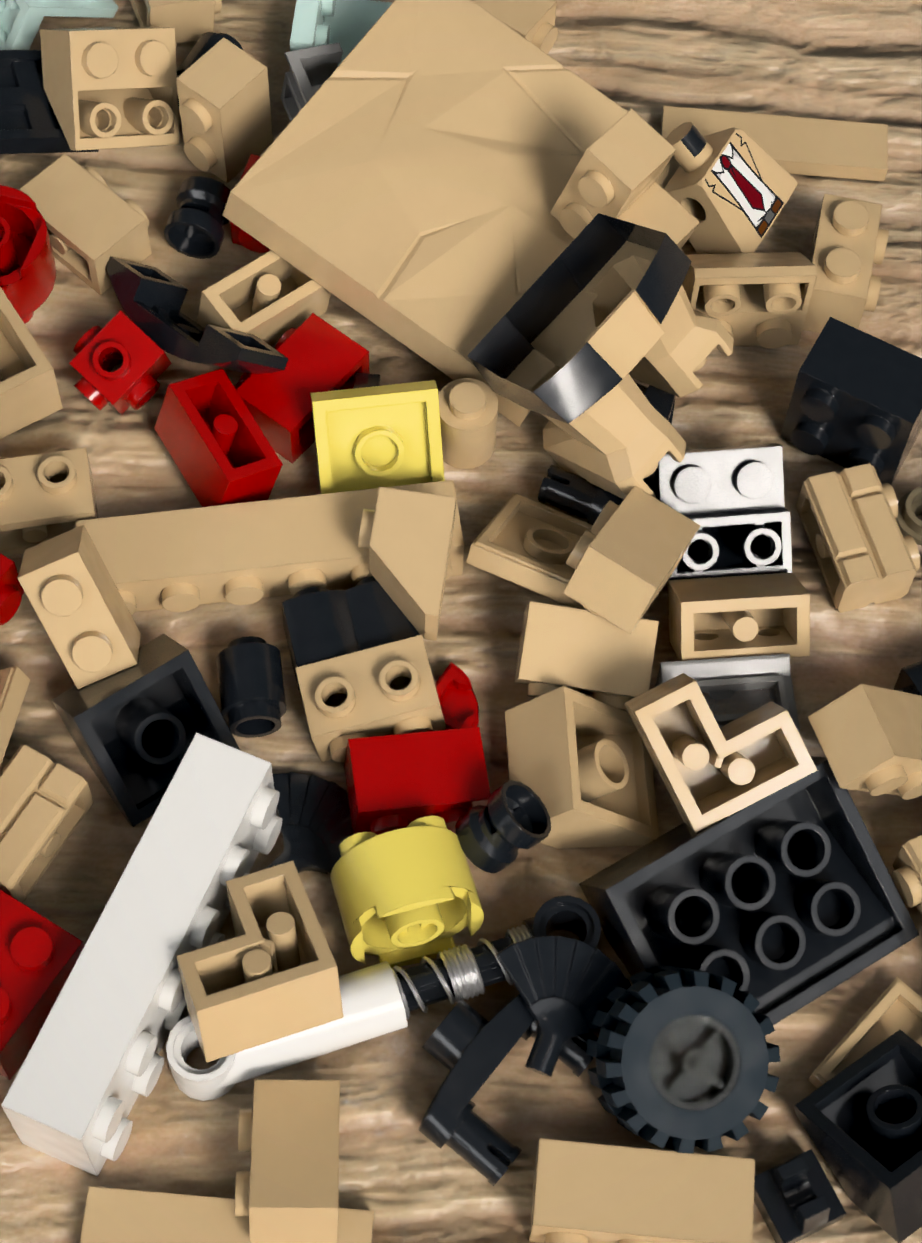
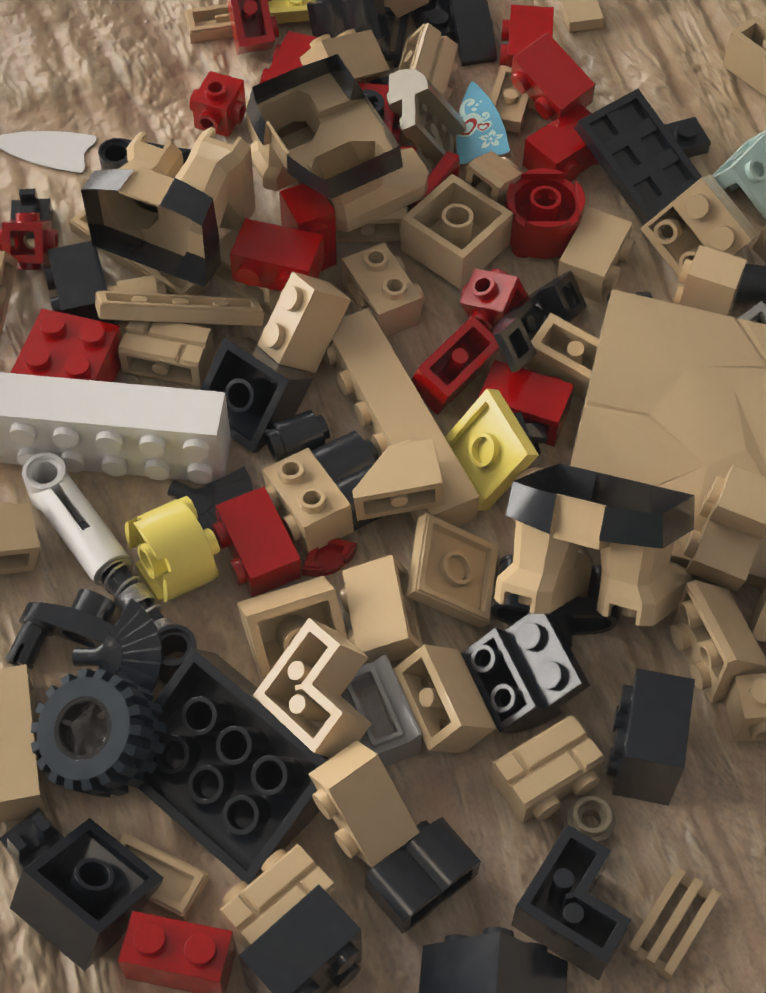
camera: 75 degrees right, 5 degrees down
(268, 977) = (86, 480): tan brick -> none
(497, 831) = (237, 590): black wheel -> none
(628, 557) = (442, 601): tan brick -> none

